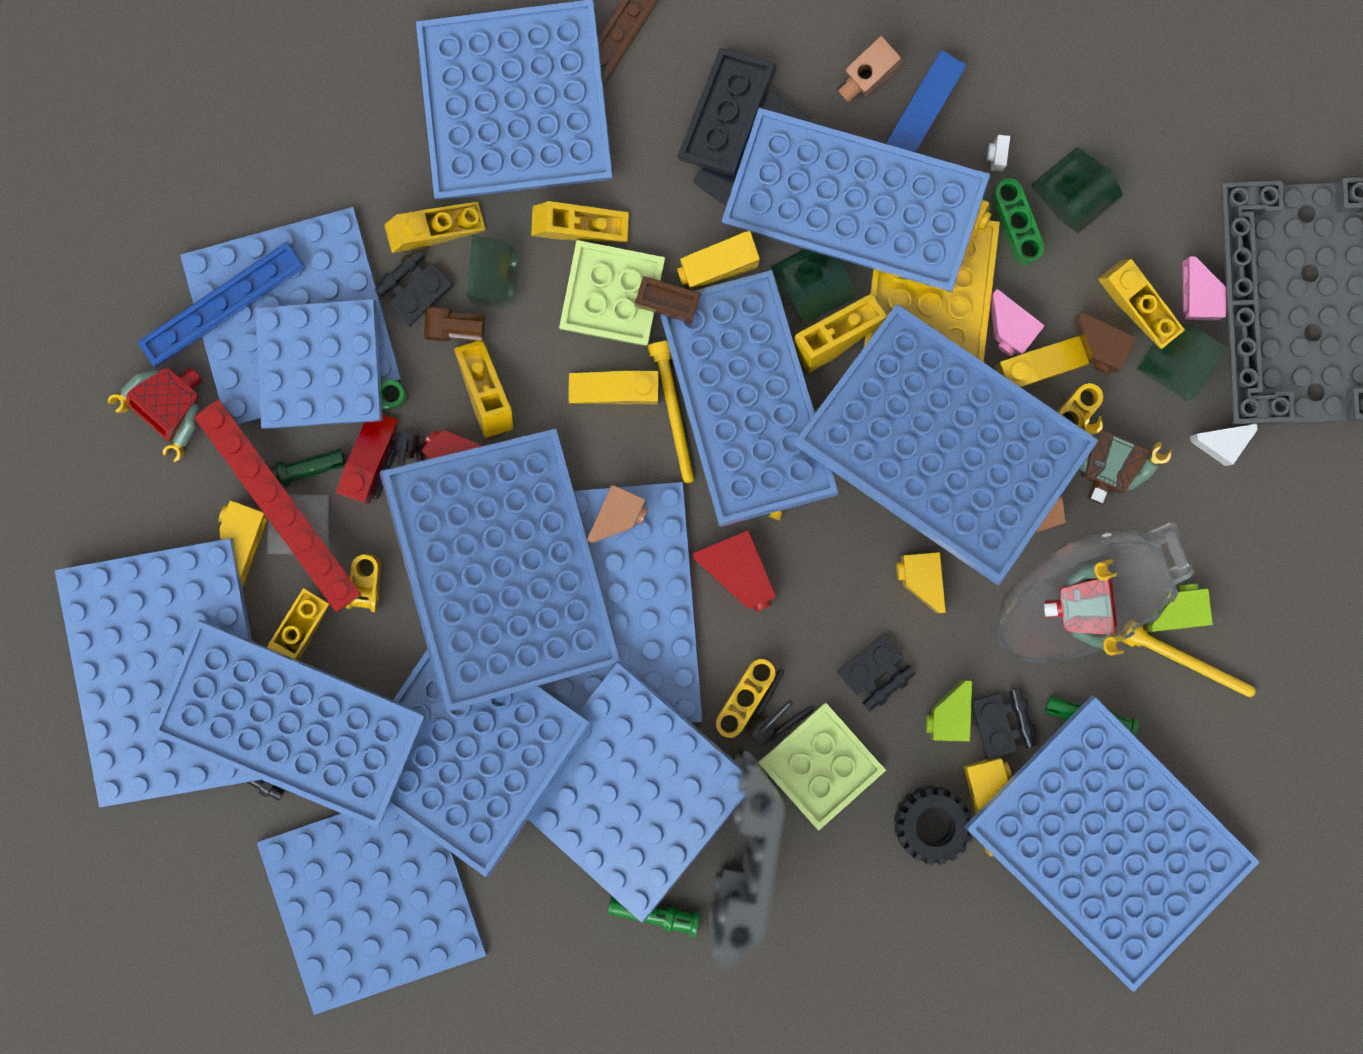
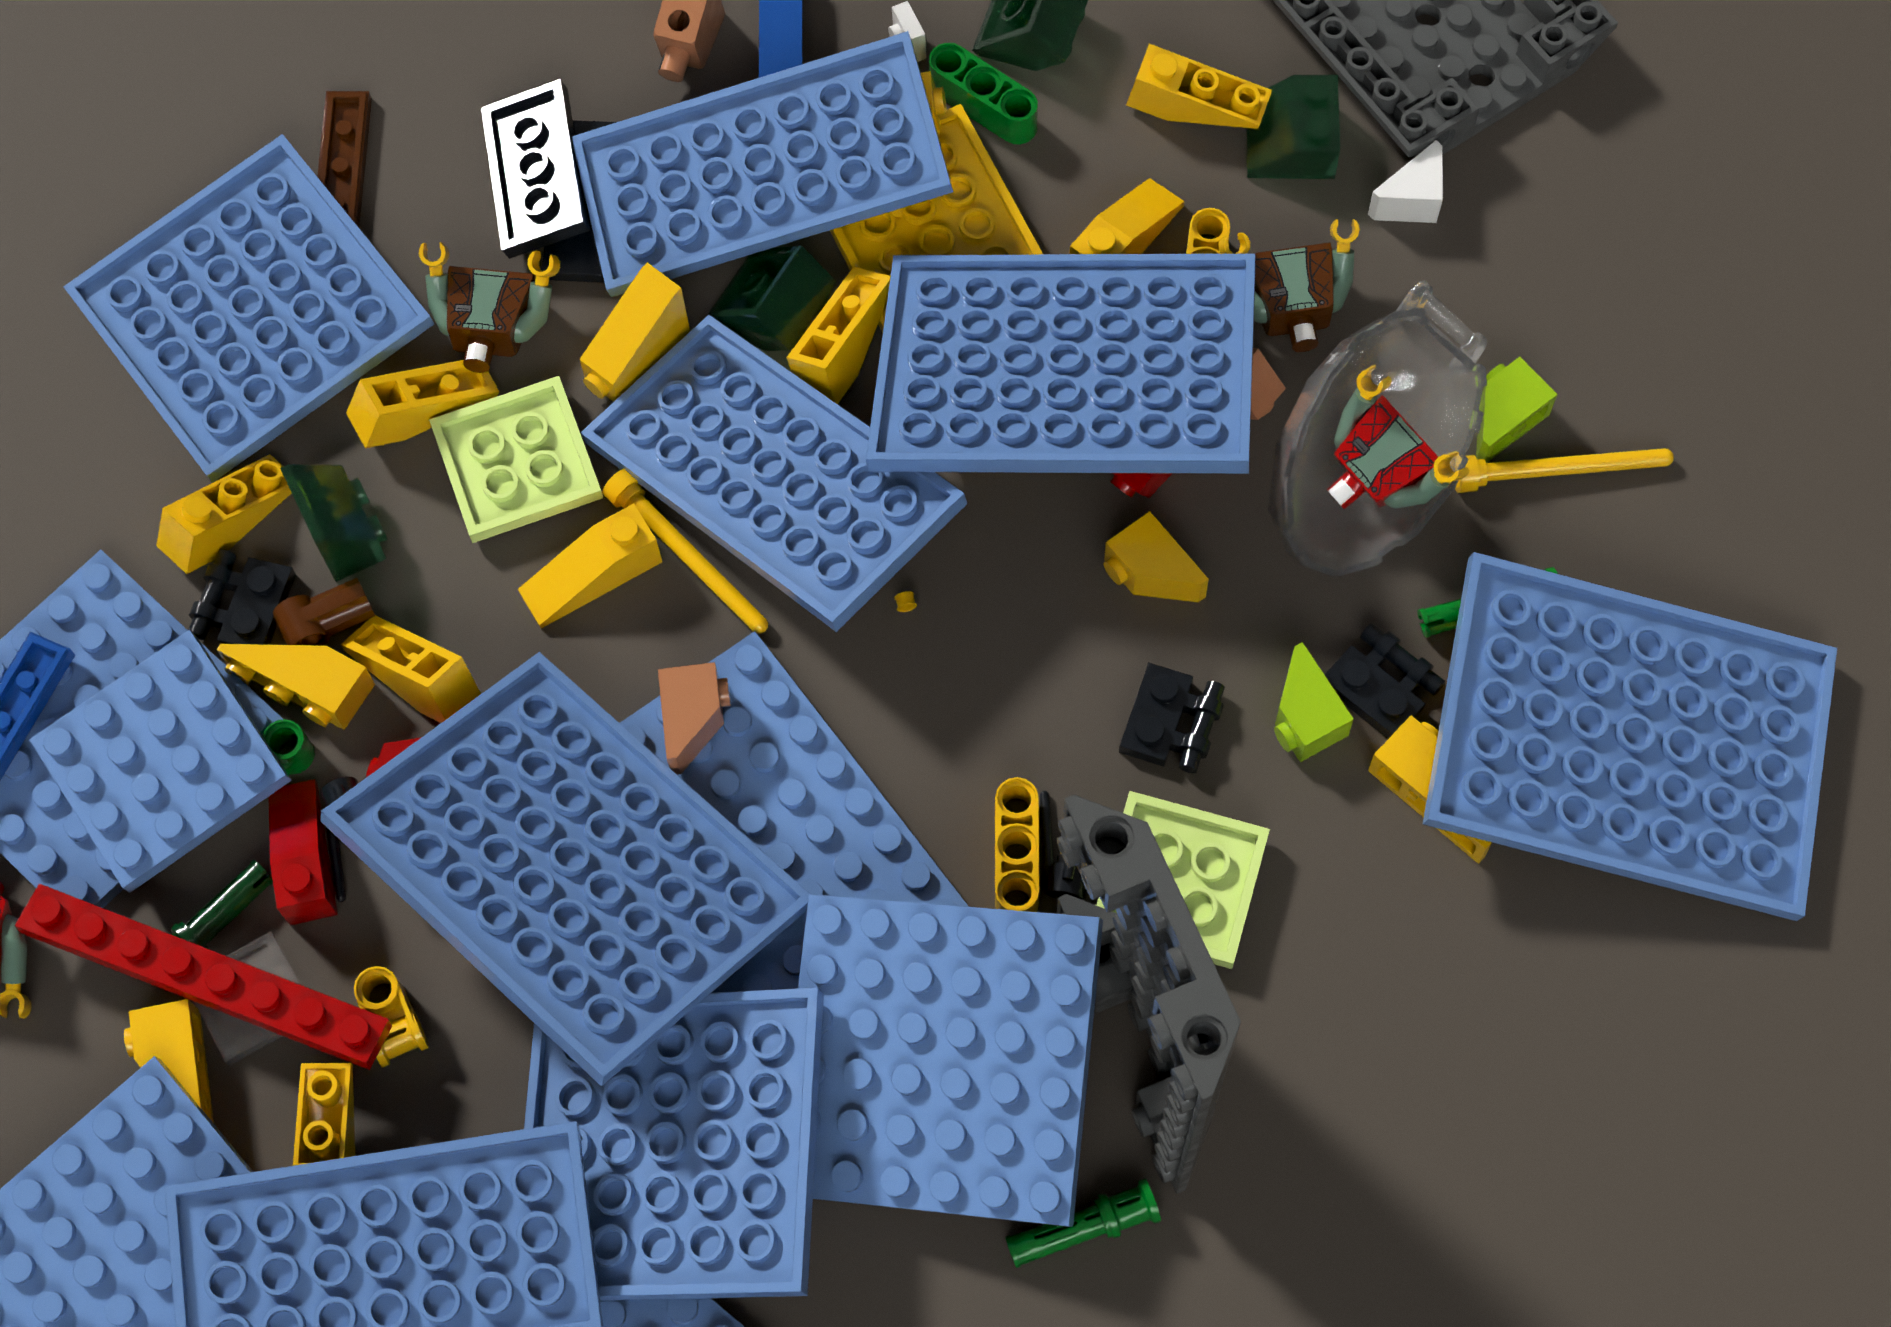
camera: 25 degrees left, 20 degrees down
(429, 363) = (309, 675): none -> yellow slope
(648, 188) = (486, 308): none -> torso
(667, 299) = (593, 418): reddish brown tile -> none
(738, 570) = (899, 695): red slope -> none
(914, 806) = (1389, 823): black tyre -> none
(1012, 325) = (1054, 204): bright pink slope -> none
(1103, 344) = (1183, 163): reddish brown slope -> none
(1201, 293) = (1263, 43): bright pink slope -> none

